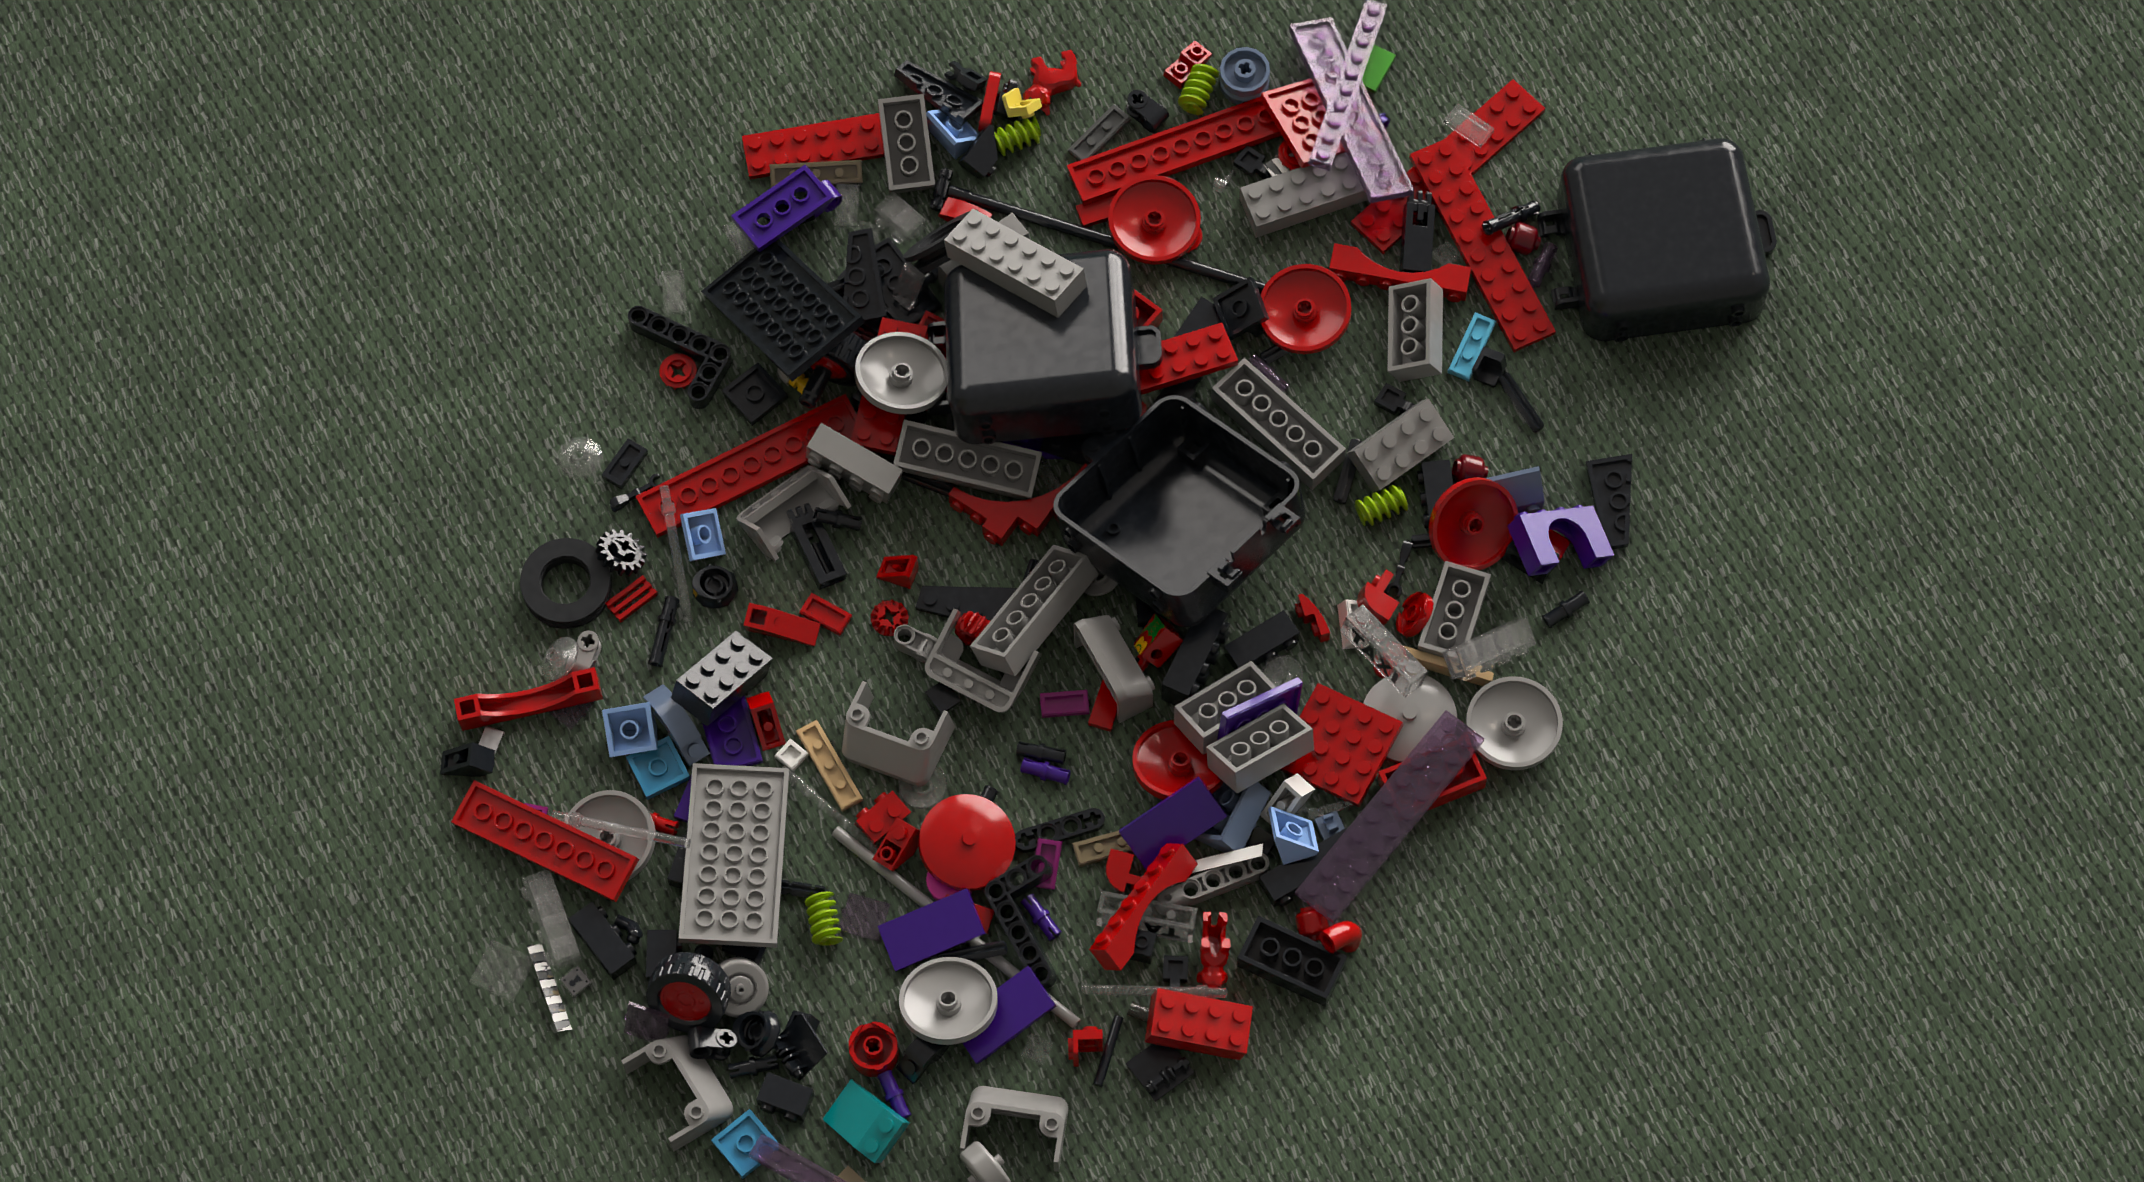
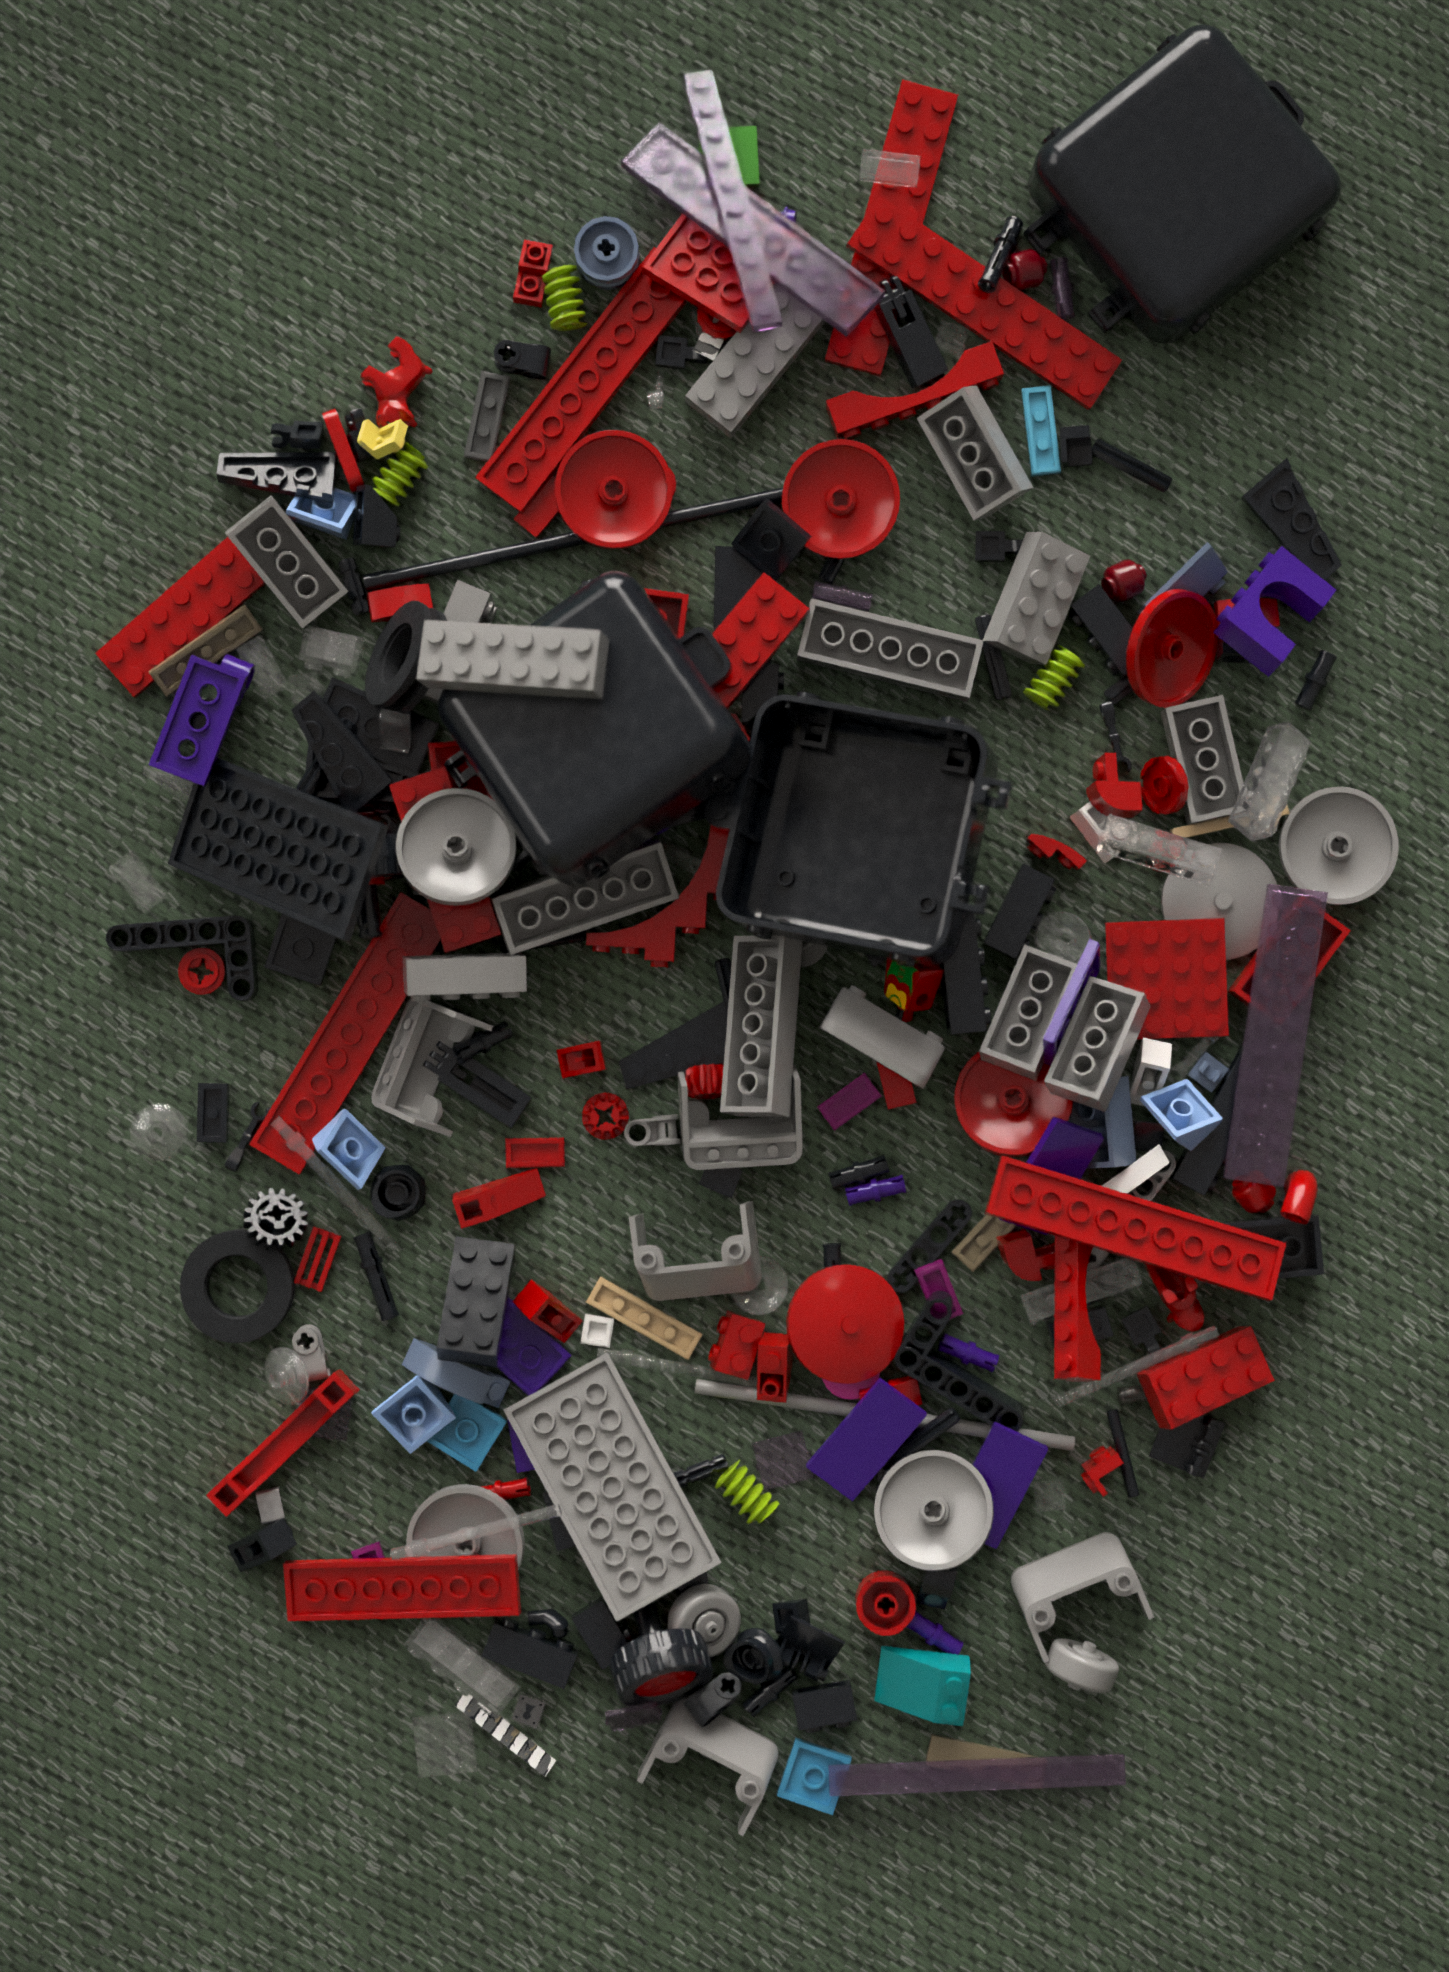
camera: 25 degrees left, 20 degrees up
(1210, 883) = (1135, 1228): none -> red plate

